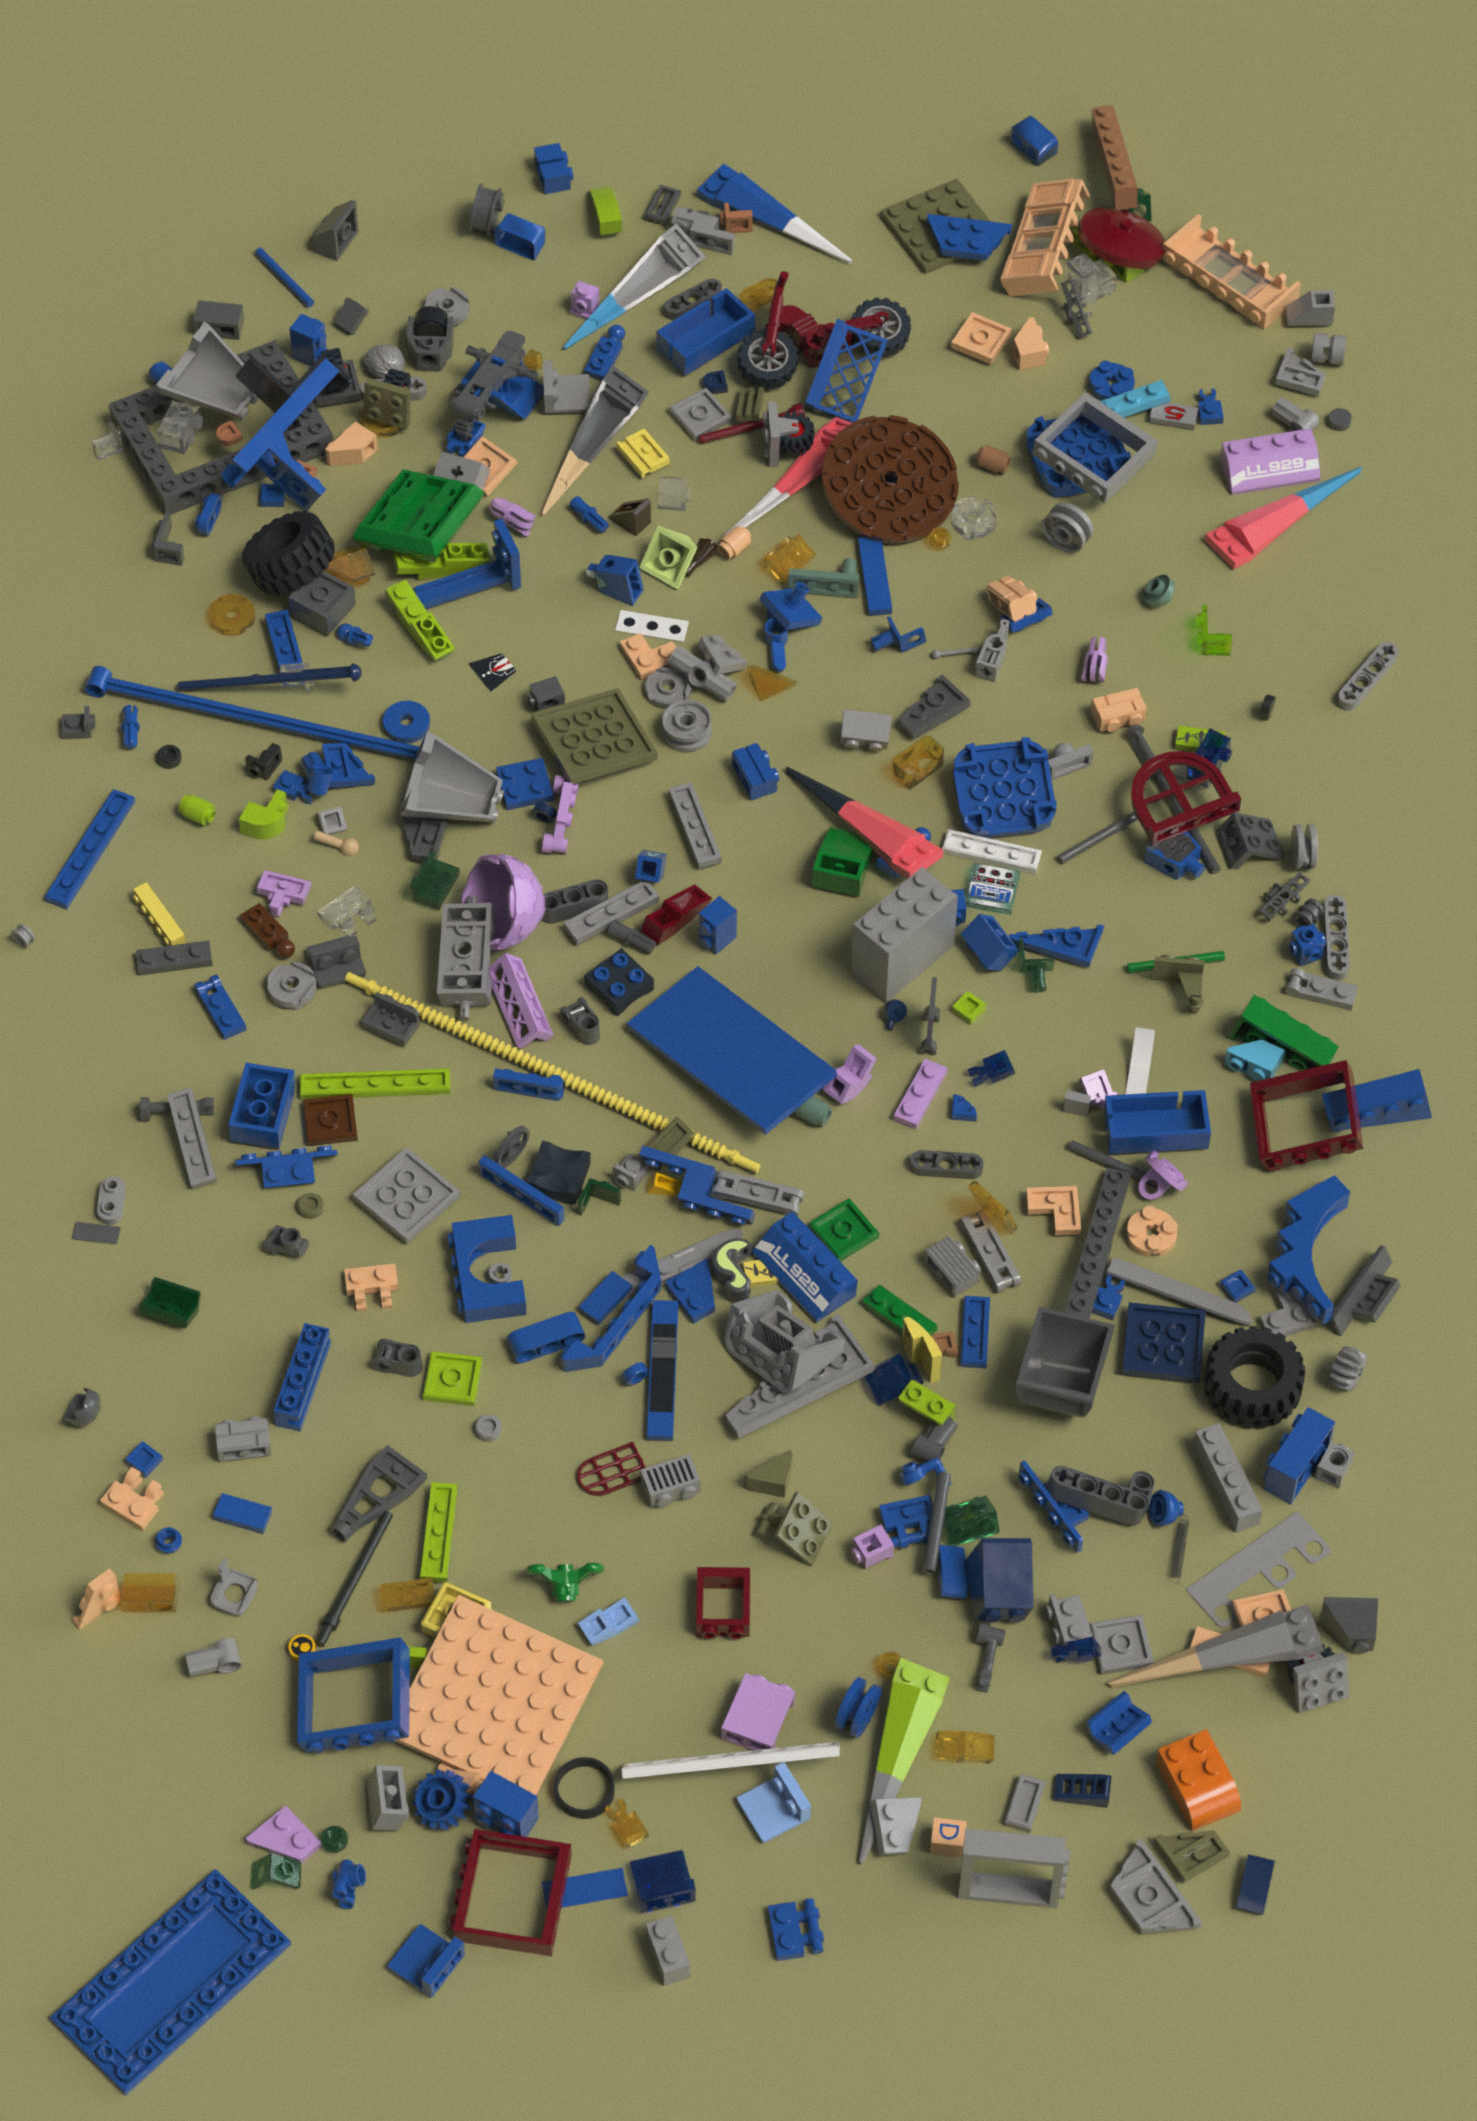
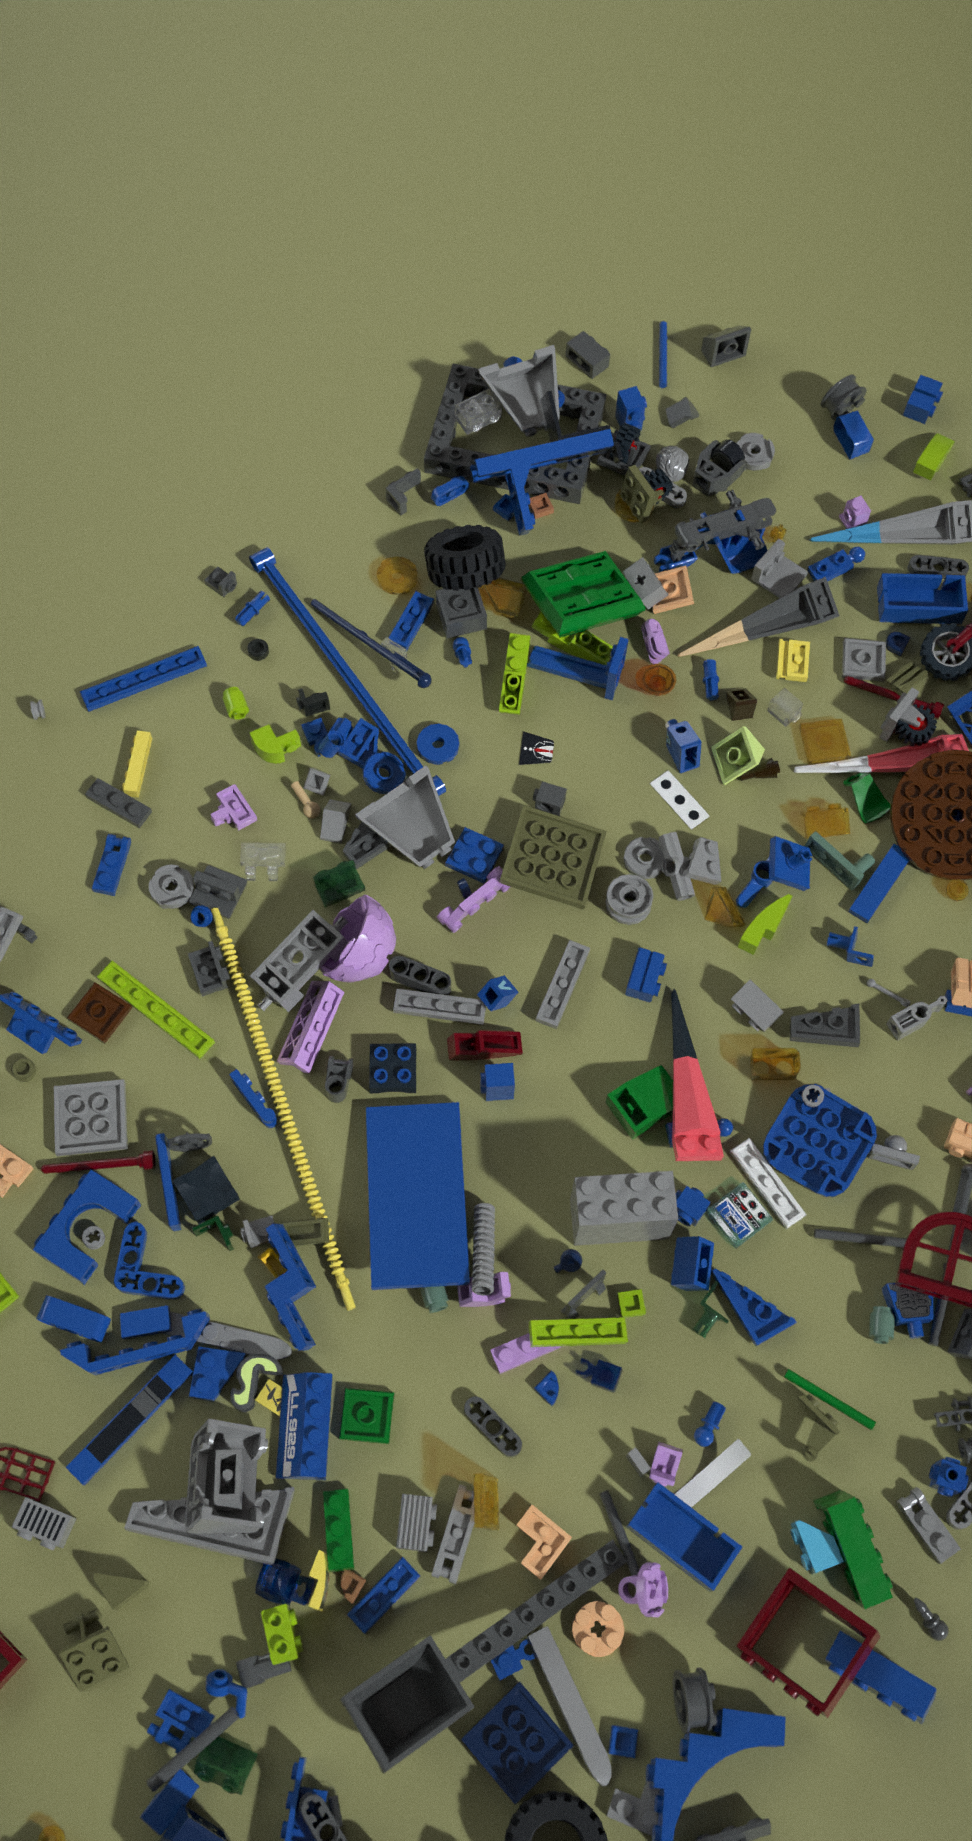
camera: 40 degrees right, 10 degrees up
(108, 443) = (431, 393): clear bracket -> none
(228, 434) = (508, 440): nougat tile -> none
(262, 1105) = (58, 965): blue brick -> none
(268, 930) = (196, 832): reddish brown plate -> none
(342, 995) = (198, 920): none -> blue plate
(352, 446) = (590, 509): light nougat slope -> none
(380, 783) = (382, 784): none -> blue tile
(380, 839) = (335, 821): none -> light grey slope
(485, 1191) = (146, 1160): none -> dark red piece
(545, 543) = (656, 679): none -> clear orange piece
(560, 1273) = (133, 1270): none -> blue beam
(631, 937) = (435, 1038): dark grey axle -> none
(635, 1373) = (104, 1407): blue tile -> none
(643, 658) = (649, 821): light nougat plate -> none
(728, 499) = (825, 741): none -> clear yellow plate
(734, 542) = (796, 779): light nougat brick -> none
(756, 1192) = (331, 1329): light grey plate -> none
(805, 517) = (868, 797): none -> green piece
(814, 669) = (764, 925): none -> lime slope
(822, 1046) = (483, 1249): none -> light grey piece
(874, 1540) = (119, 1726): lavender brick -> none
(949, 1051) = (577, 1332): none -> lime plate
(975, 760) = (806, 1092): none -> light grey bush
(1108, 1051) = (704, 1435): none -> blue axle
(1167, 882) = (881, 1324): none -> sand green brick
(1261, 1213) = (694, 1700): none -> dark grey wheel
(1386, 1049) = (936, 1627): none -> dark grey bar

